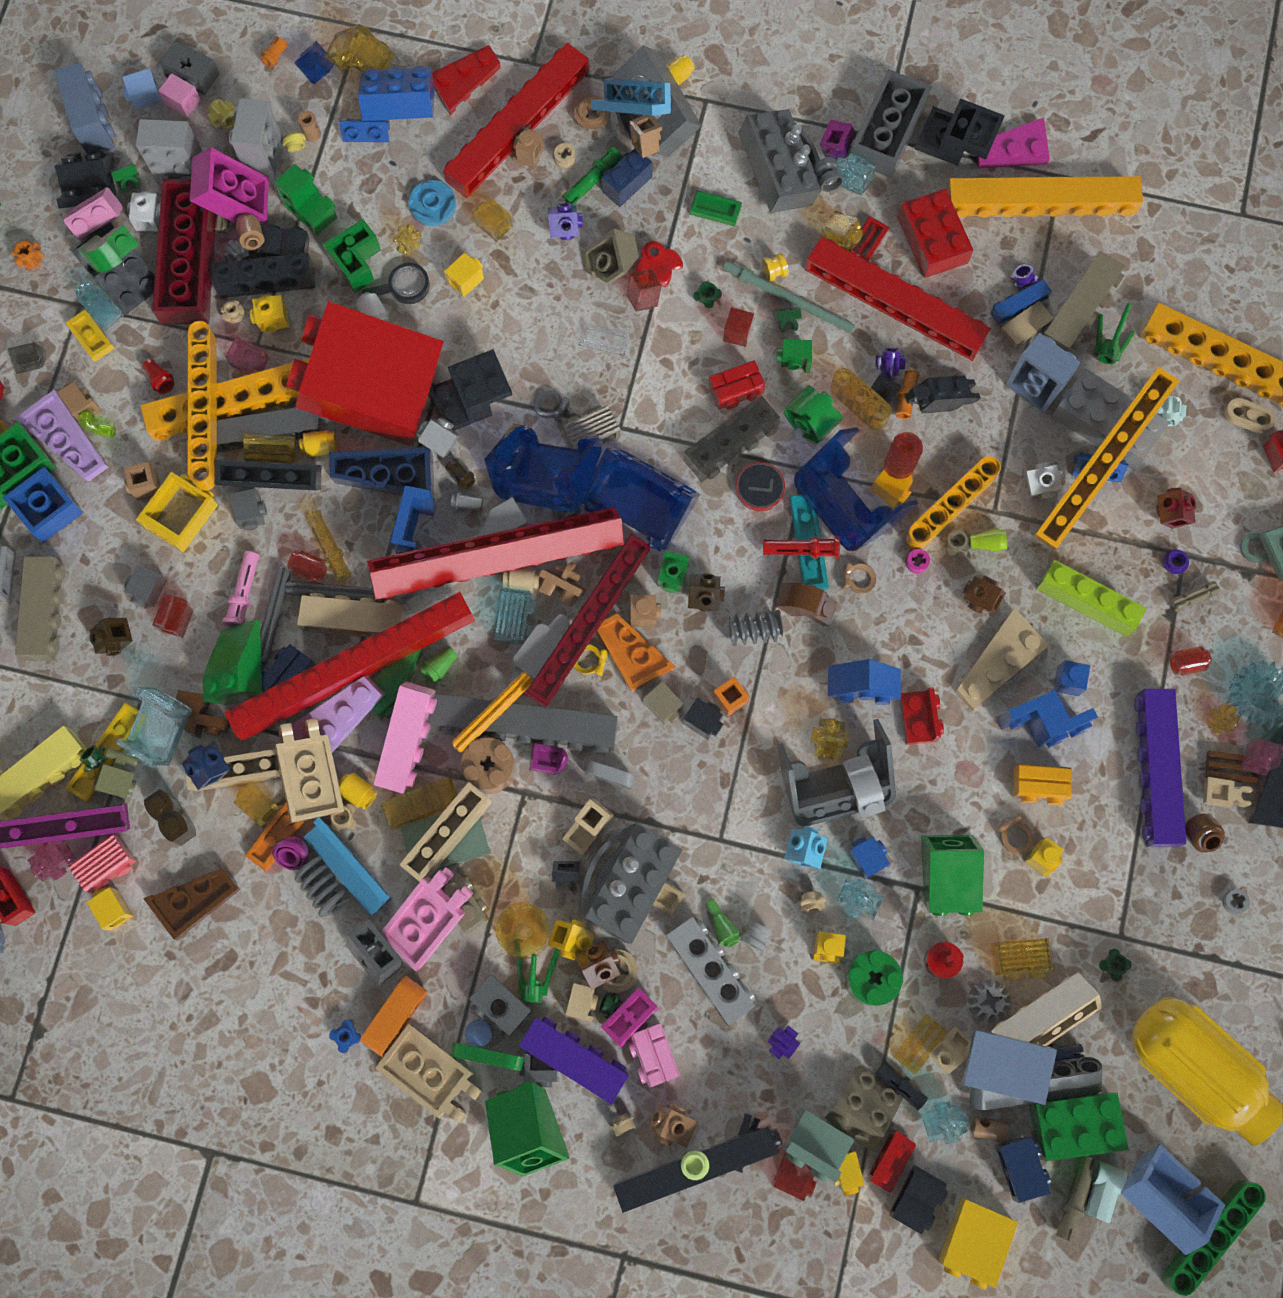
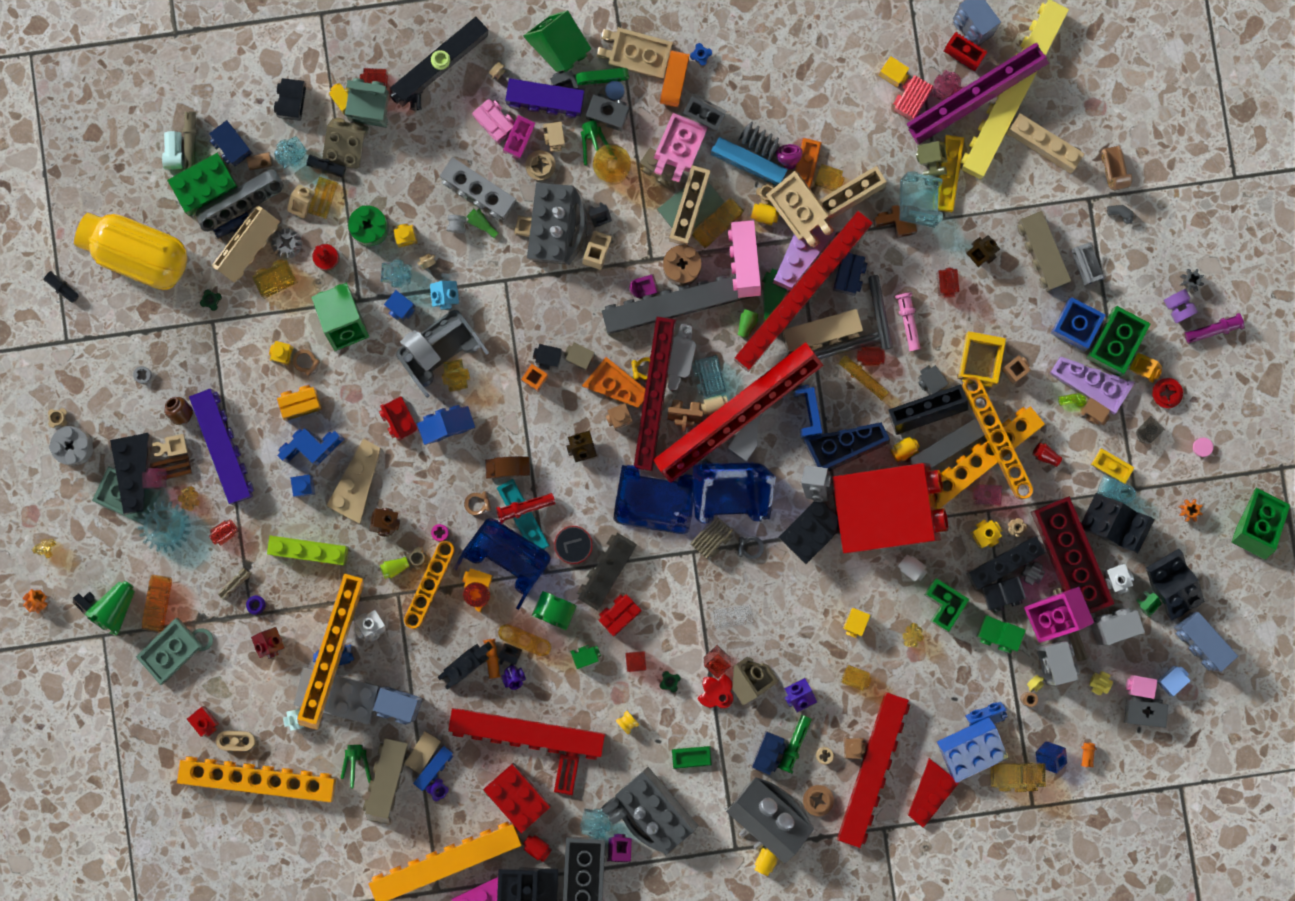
camera: 160 degrees right, 10 degrees up
(93, 213) = (1149, 552): bright pink brick -> none
(93, 757) = (953, 163): dark green plate -> none
(108, 251) = (1121, 523): green brick -> none
(144, 586) = (978, 295): dark grey brick -> none
(171, 821) = (878, 143): dark brown brick -> none
(188, 904) = (842, 98): reddish brown wing -> none
(205, 765) = (868, 182): dark blue brick -> none
(234, 665) = (887, 264): green slope -> none
(249, 231) = (1029, 588): medium nougat brick -> none
(269, 444) = (937, 430): clear yellow tile -> none
(406, 283) = (898, 601): piece -> none
(432, 203) = (908, 676): dark azure tile -> none
(458, 471) = (792, 467): dark brown pin -> none
(466, 502) = (779, 448): light grey pin -> none
(492, 712) = (693, 299): light orange axle -> none
(575, 941) = (577, 172): yellow brick -> none
(598, 964) = (552, 161): reddish brown brick -> none
(609, 775) = (597, 292): light grey beam -> none
(609, 1005) = (536, 141): dark green plate -> none
(636, 103) = (783, 802): dark azure fence -> none
(645, 135) = (763, 780): medium nougat brick -> none
(672, 1125) = (465, 81): medium nougat brick -> none
(676, 562) = (615, 459): green brick -> none
(747, 276) = (645, 708): sand green bar -> none
(755, 627) = (536, 435): dark grey piece -> none
(783, 1042) = (412, 162): dark purple gear -> none
(787, 315) = (603, 686): dark green tile -> none
(843, 230) = (587, 770): clear yellow brick -> none
(891, 1161) = (316, 115): red bracket -> none
(931, 174) = (537, 848): none -> red brick
(977, 1244) = (244, 87): yellow brick -> none
(1009, 1066) = (261, 199): sand blue tile -> none
(1157, 1192) = (137, 159): medium blue piece -> none
(1227, 1235) = (93, 141): green beam -> none

